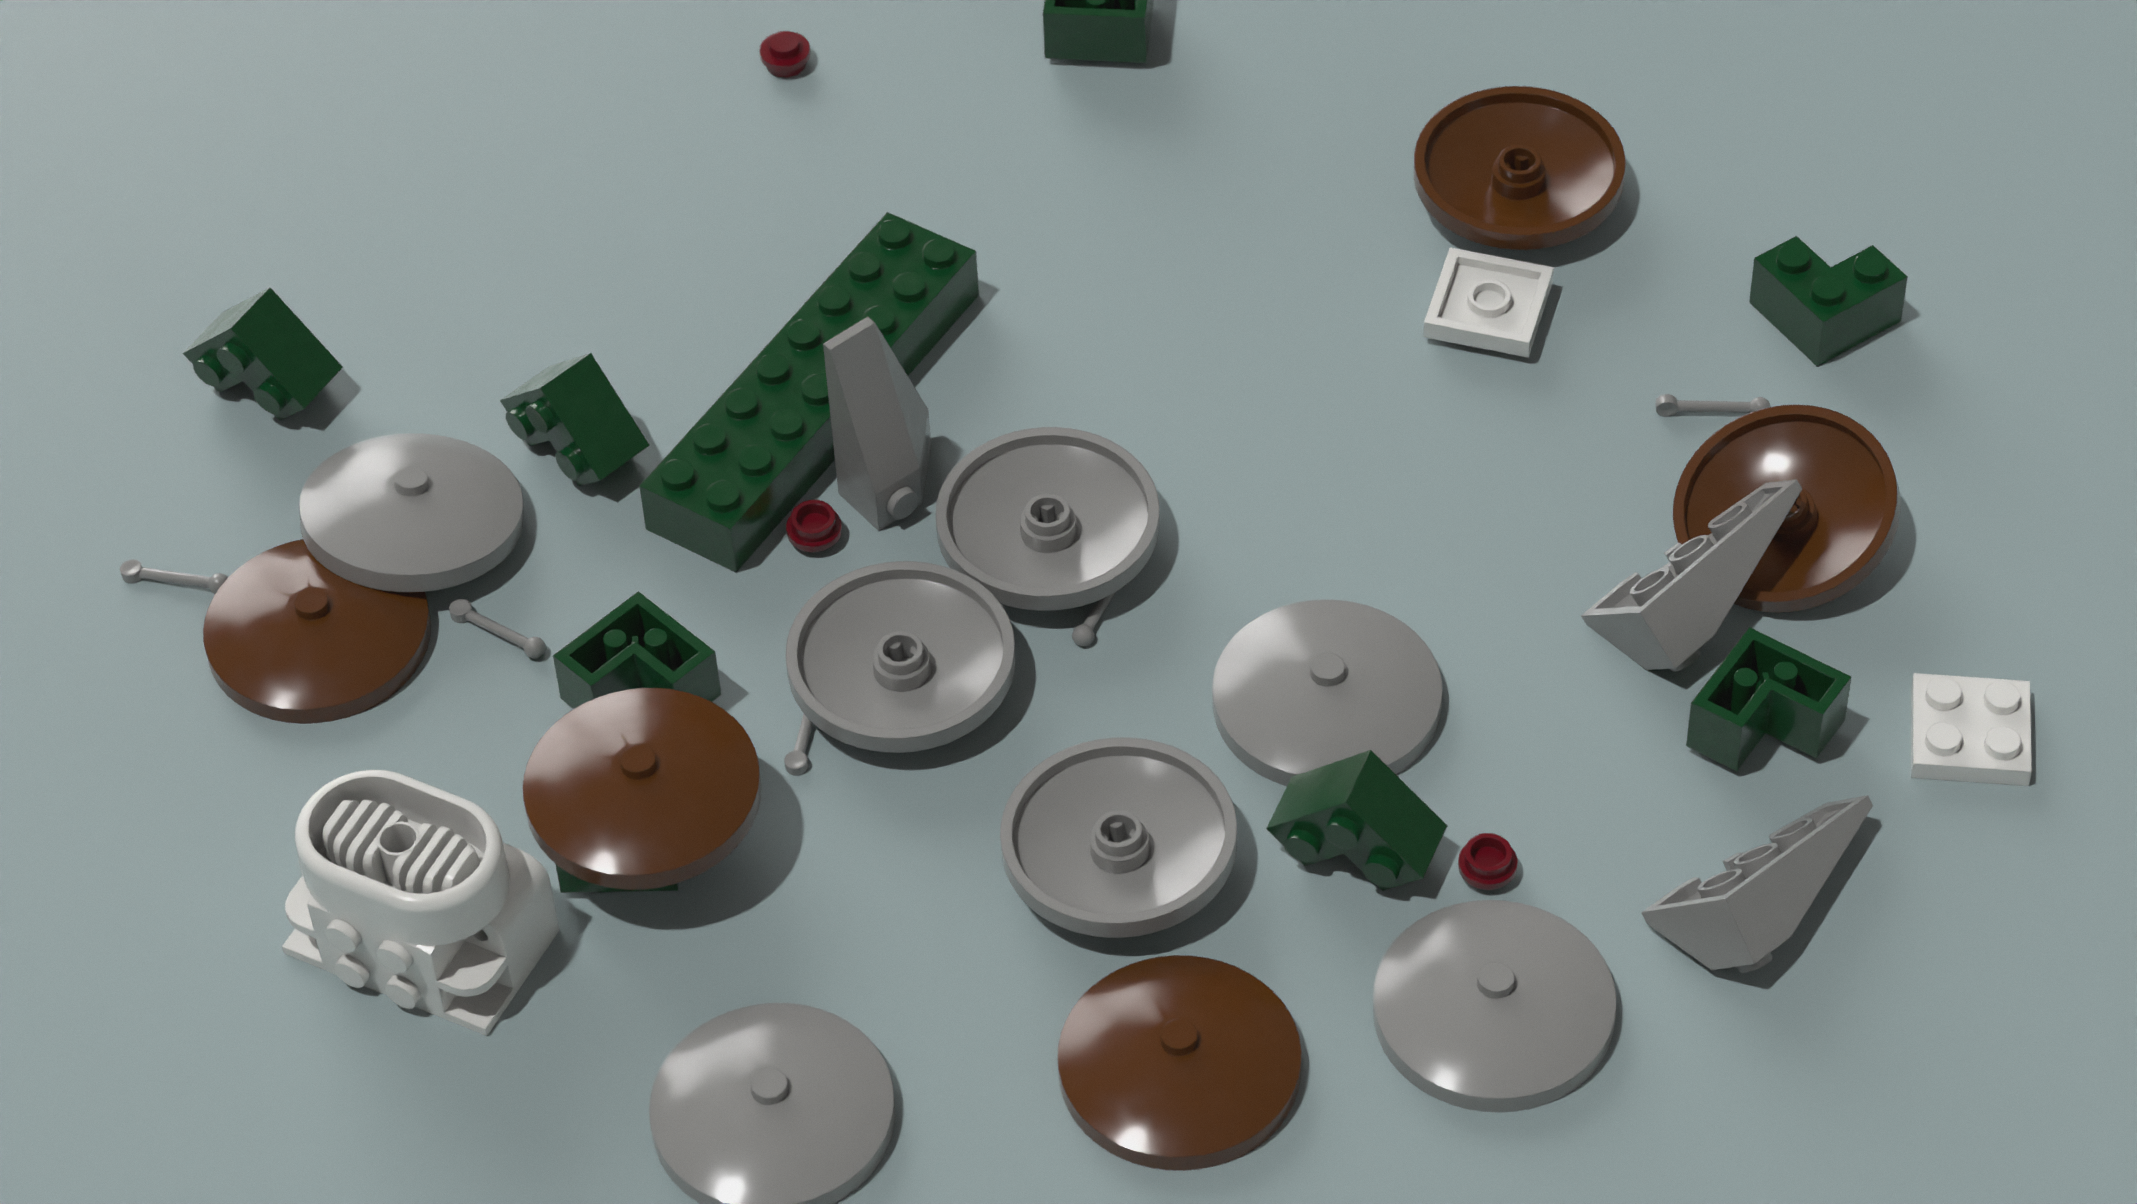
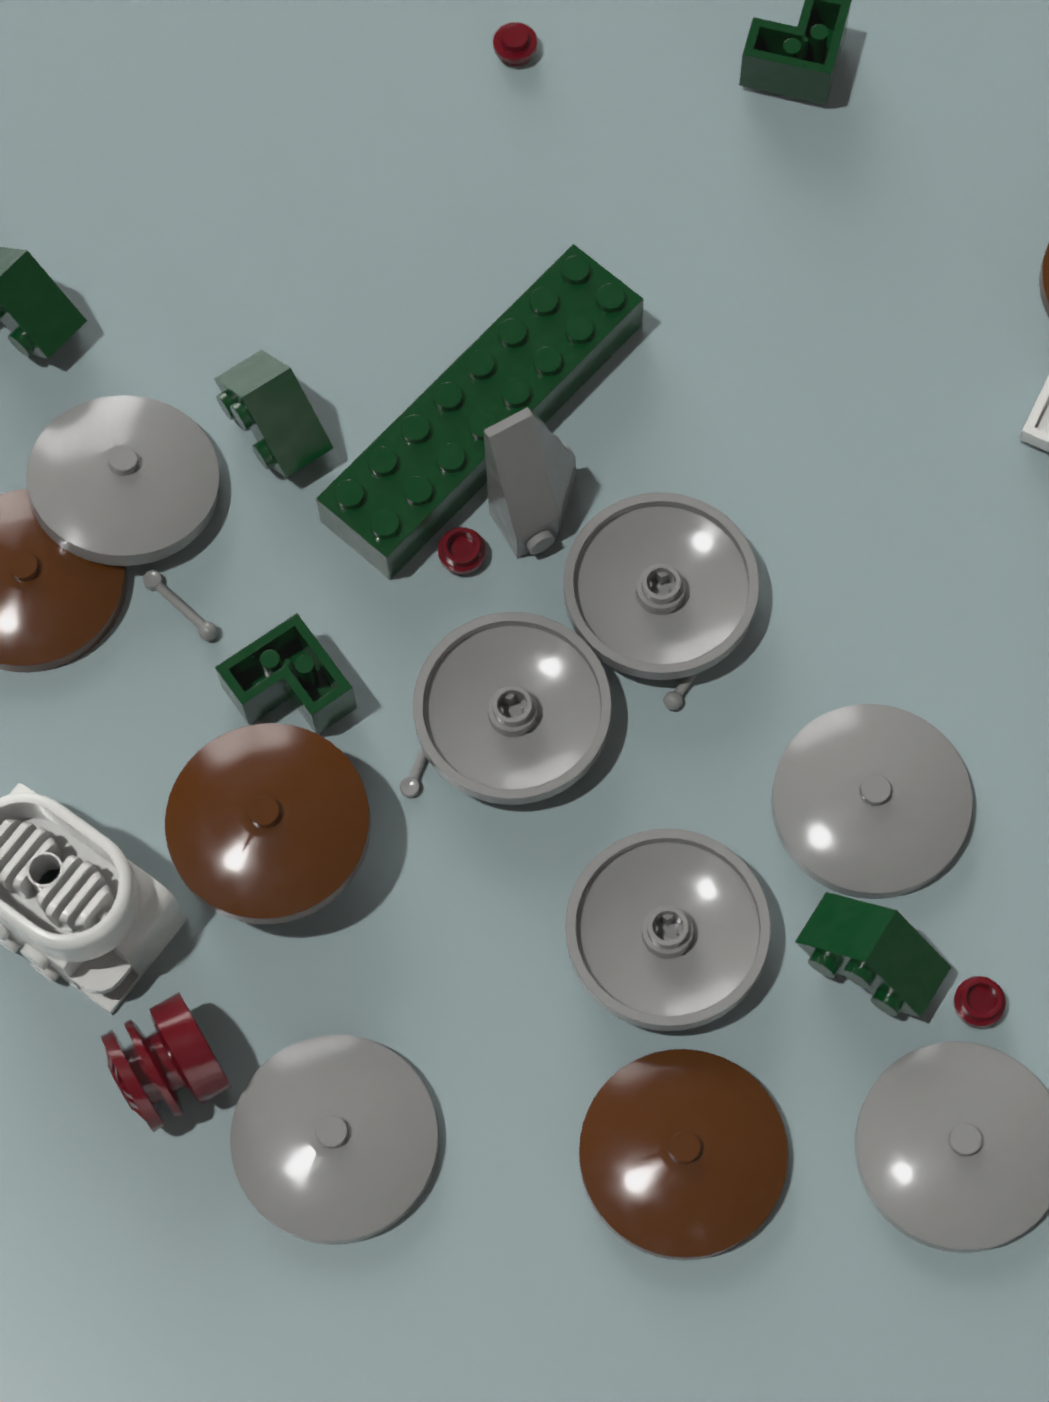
camera: 10 degrees right, 20 degrees up
(564, 1045) = (164, 1062): none -> dark red wheel

